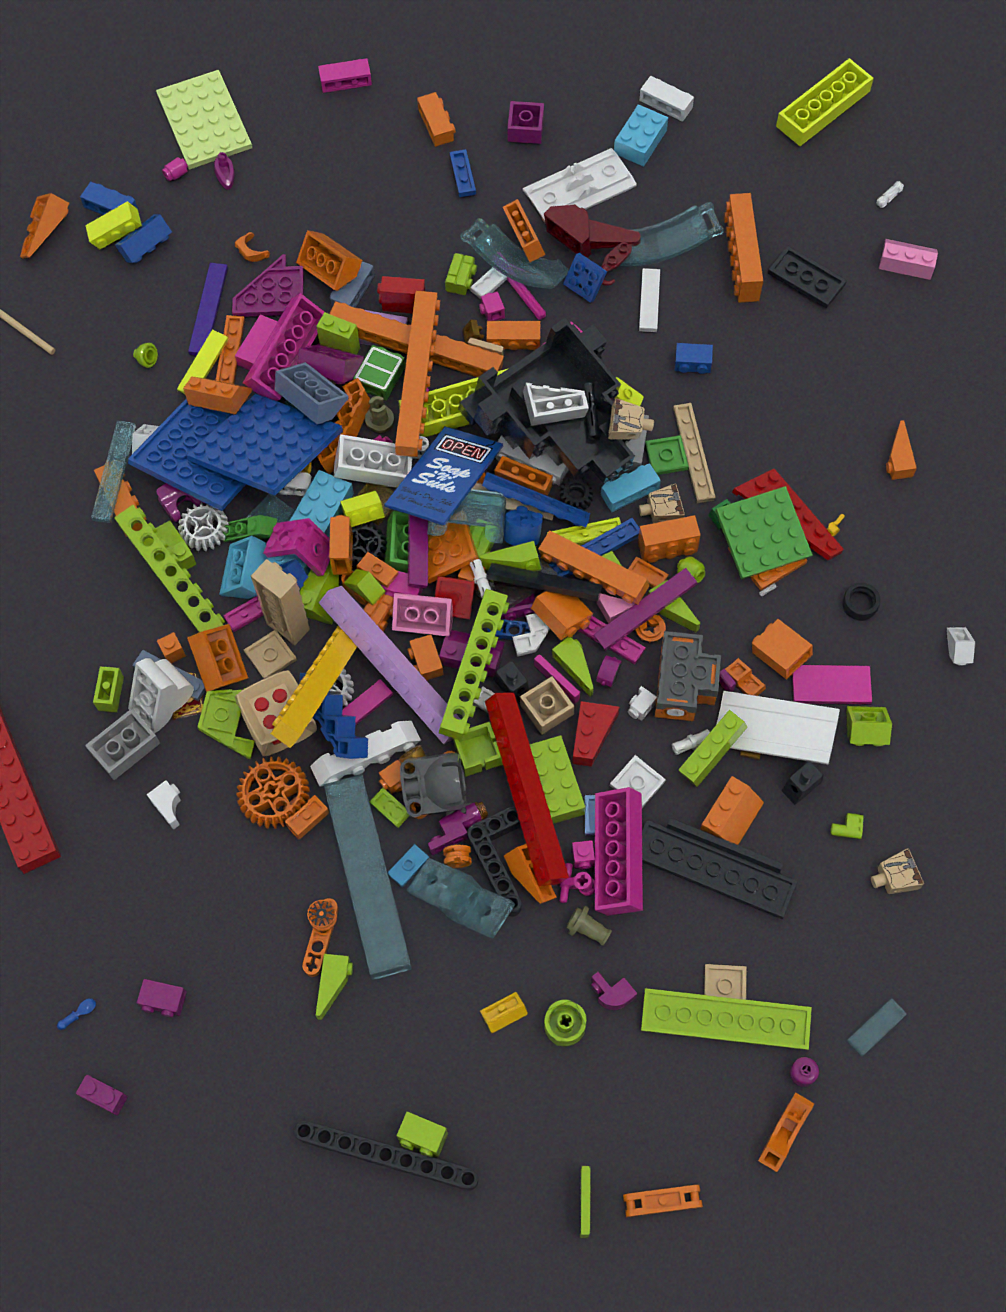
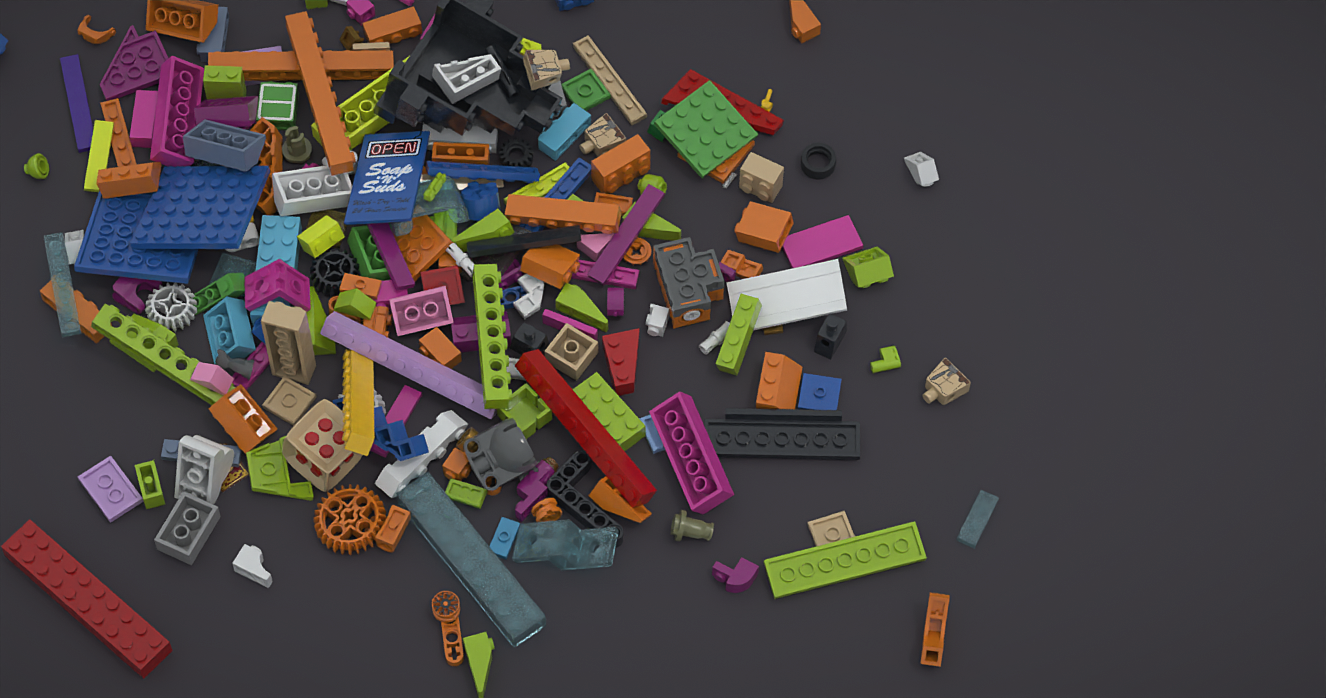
camera: 25 degrees left, 5 degrees down
(73, 679) = (110, 489): none -> lavender plate
(171, 648) = (192, 425): orange brick -> none
(204, 609) = (212, 377): none -> bright pink slope
(235, 605) = (238, 365): none -> dark grey animal
(341, 545) = (318, 274): orange brick -> none
(398, 293) = (266, 25): red brick -> none
(482, 499) = (434, 186): none -> lime axle
(504, 1012) = (646, 629): yellow slope -> none
(570, 1012) = (696, 615): lime brick -> none
(581, 881) = (666, 495): dark pink piece -> none
(583, 854) = (660, 469): dark pink brick -> none
(640, 778) = (685, 382): white plate -> none
(769, 836) = (819, 392): none -> blue plate
(798, 599) = (761, 177): none -> tan brick
(798, 1075) = (930, 577): magenta head -> none

